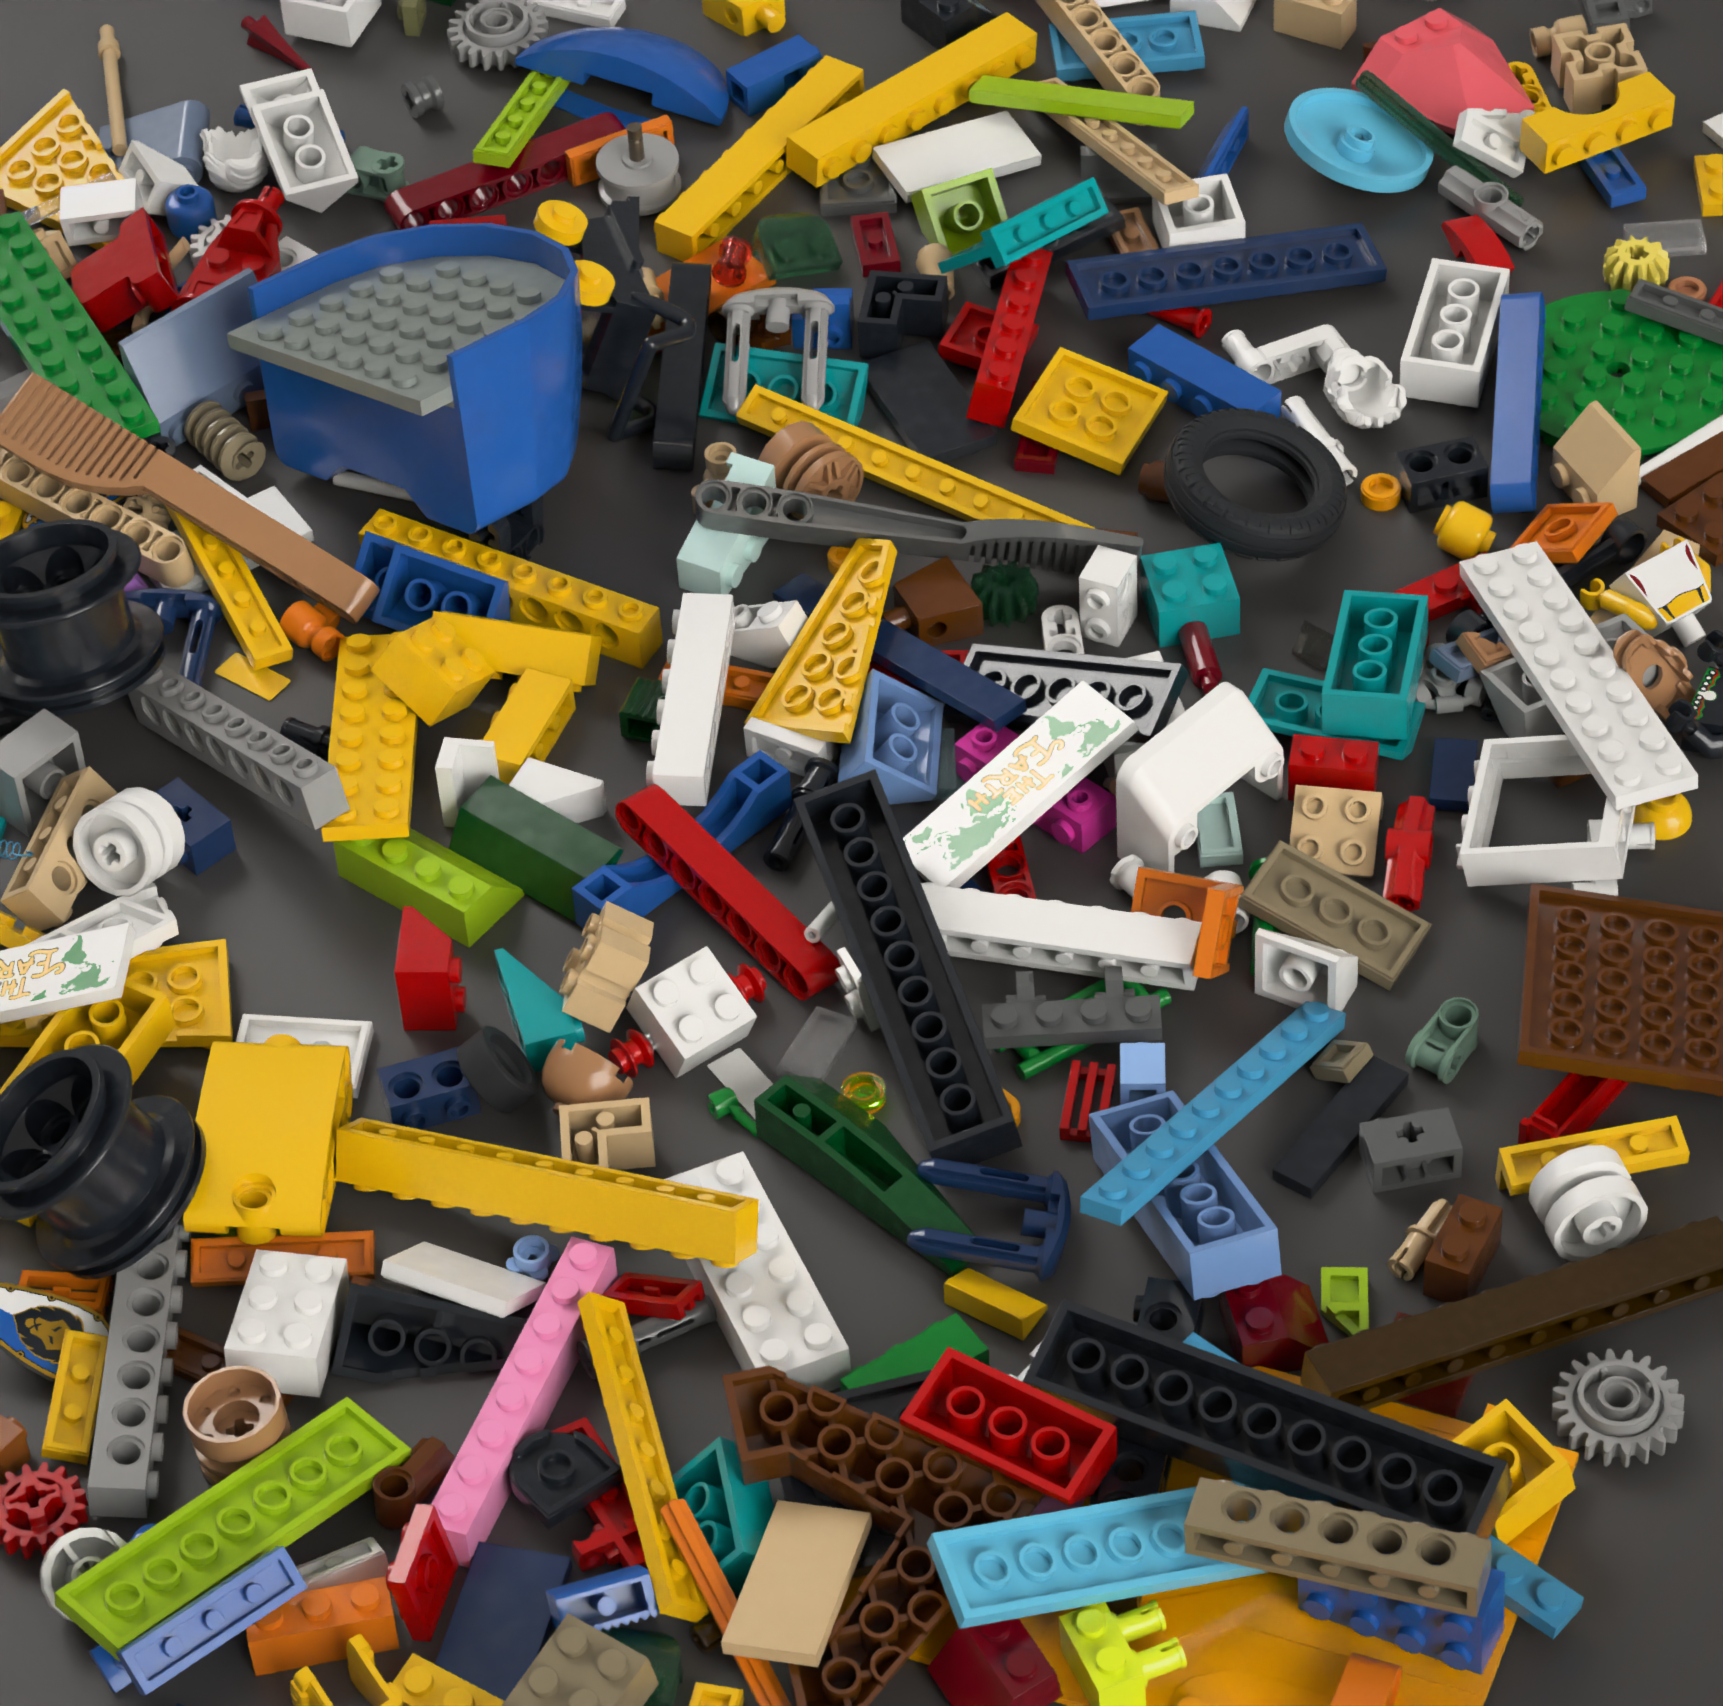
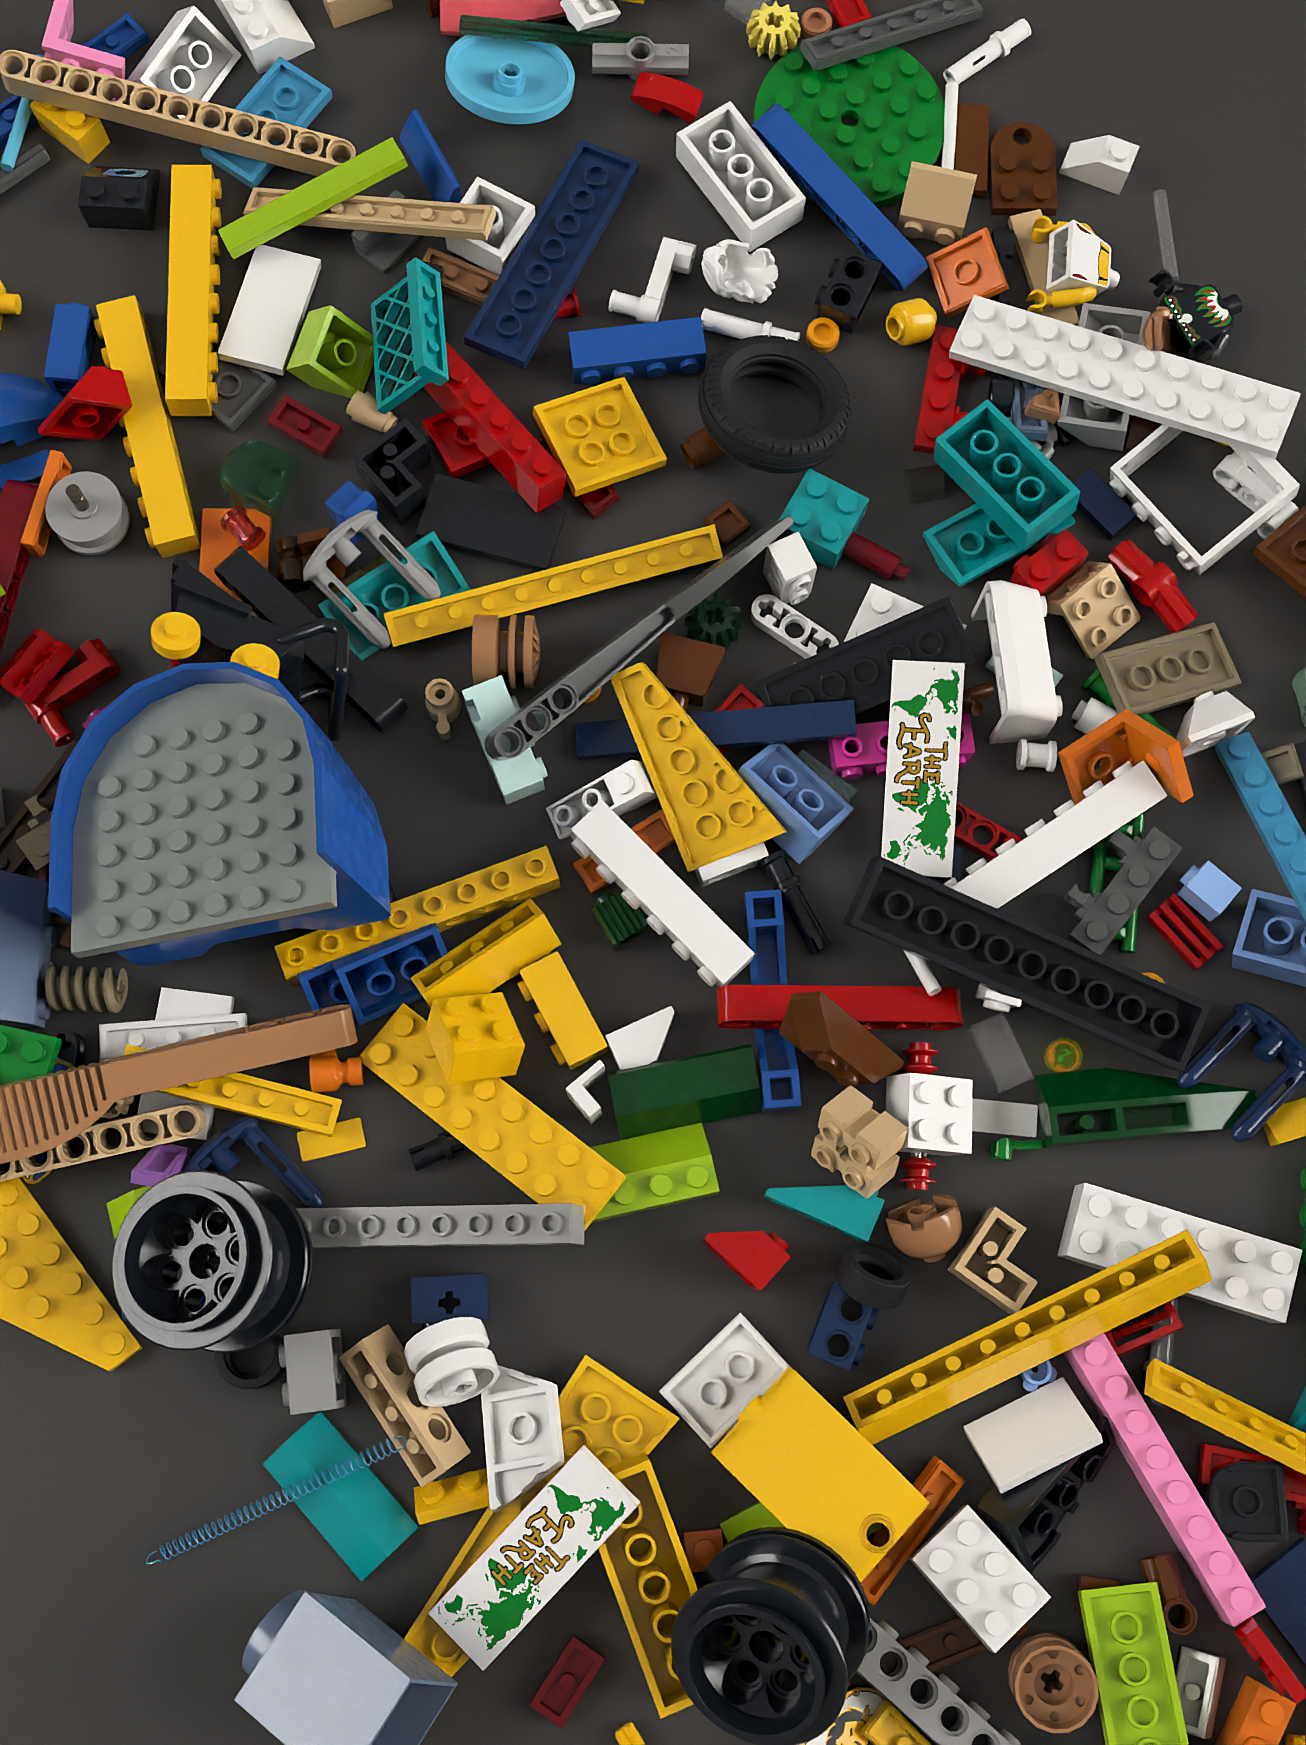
camera: 55 degrees left, 30 degrees up
(682, 884) = (836, 1040): none -> reddish brown wedge
(725, 101) = (90, 406): none -> red slope

